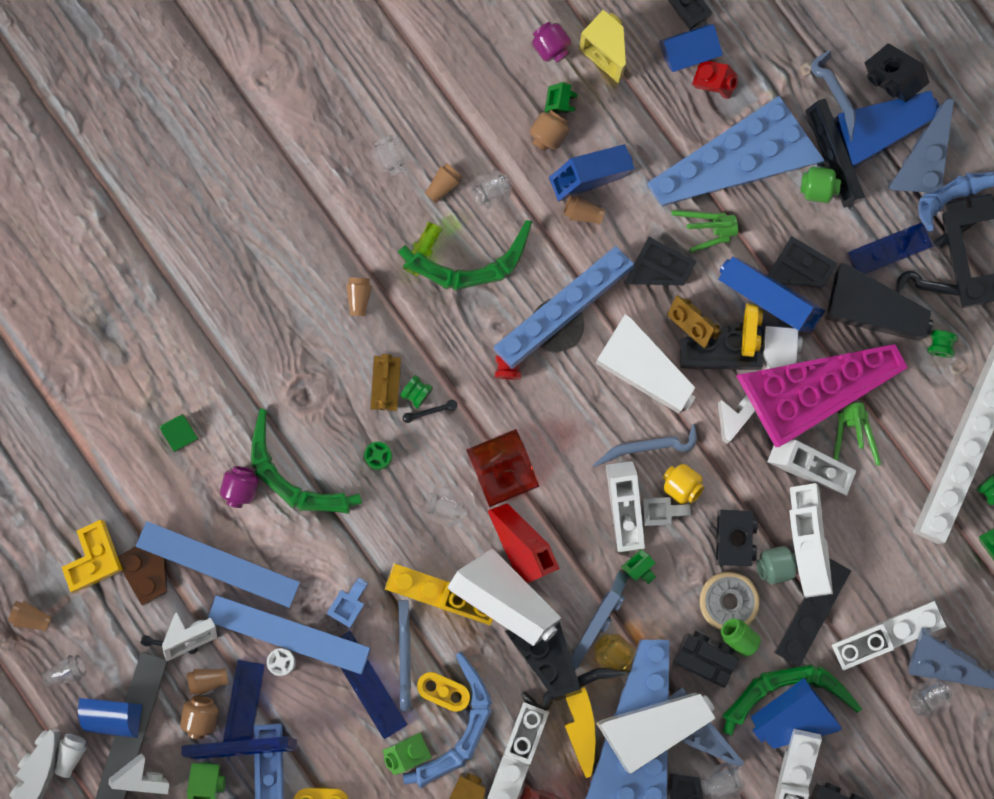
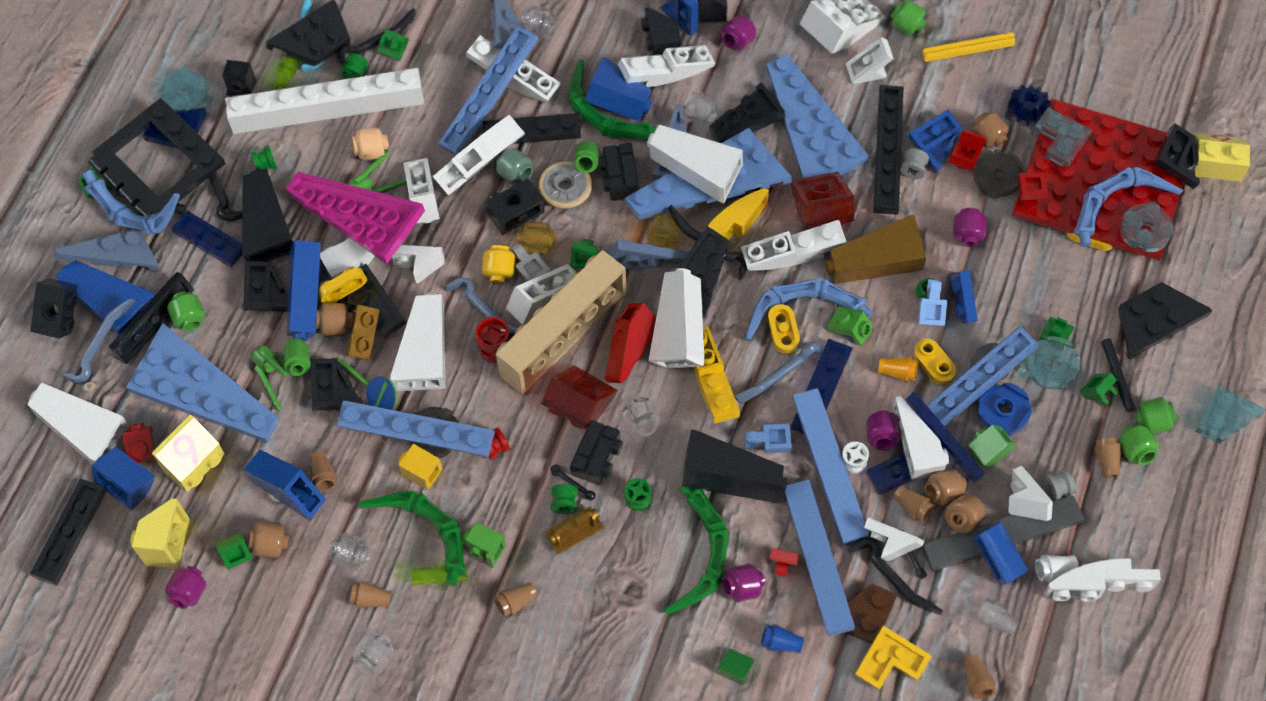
camera: 120 degrees left, 20 degrees down
(160, 614) = (893, 577): none -> black piece
(163, 713) = (964, 513): none -> medium nougat head
(174, 481) = (779, 639): none -> blue cone
(235, 534) = (783, 559): none -> red tile
(242, 720) = (919, 443): none -> white slope
(287, 704) = (883, 430): none -> magenta head
(335, 764) = (899, 368): none -> light orange cone
(343, 544) = (731, 470): none -> black slope
(423, 300) = (484, 543): none -> bright green brick
(439, 445) = (596, 452): none -> black brick
(530, 292) = (419, 466): none -> yellow brick
(579, 496) = (561, 322): none -> tan brick
(606, 428) = (490, 335): none -> red wheel
(626, 301) = (379, 391): none -> blue piece
(670, 109) = (188, 454): none -> slope
(686, 535) = (536, 237): none -> clear yellow head
(707, 251) = (296, 357): none -> bright green brick
(725, 305) = (333, 319): none -> medium nougat head
(764, 39) = (78, 422): none -> white slope
(876, 595) = (488, 90): none -> medium blue tile
(893, 449) = (369, 143): none -> light nougat head

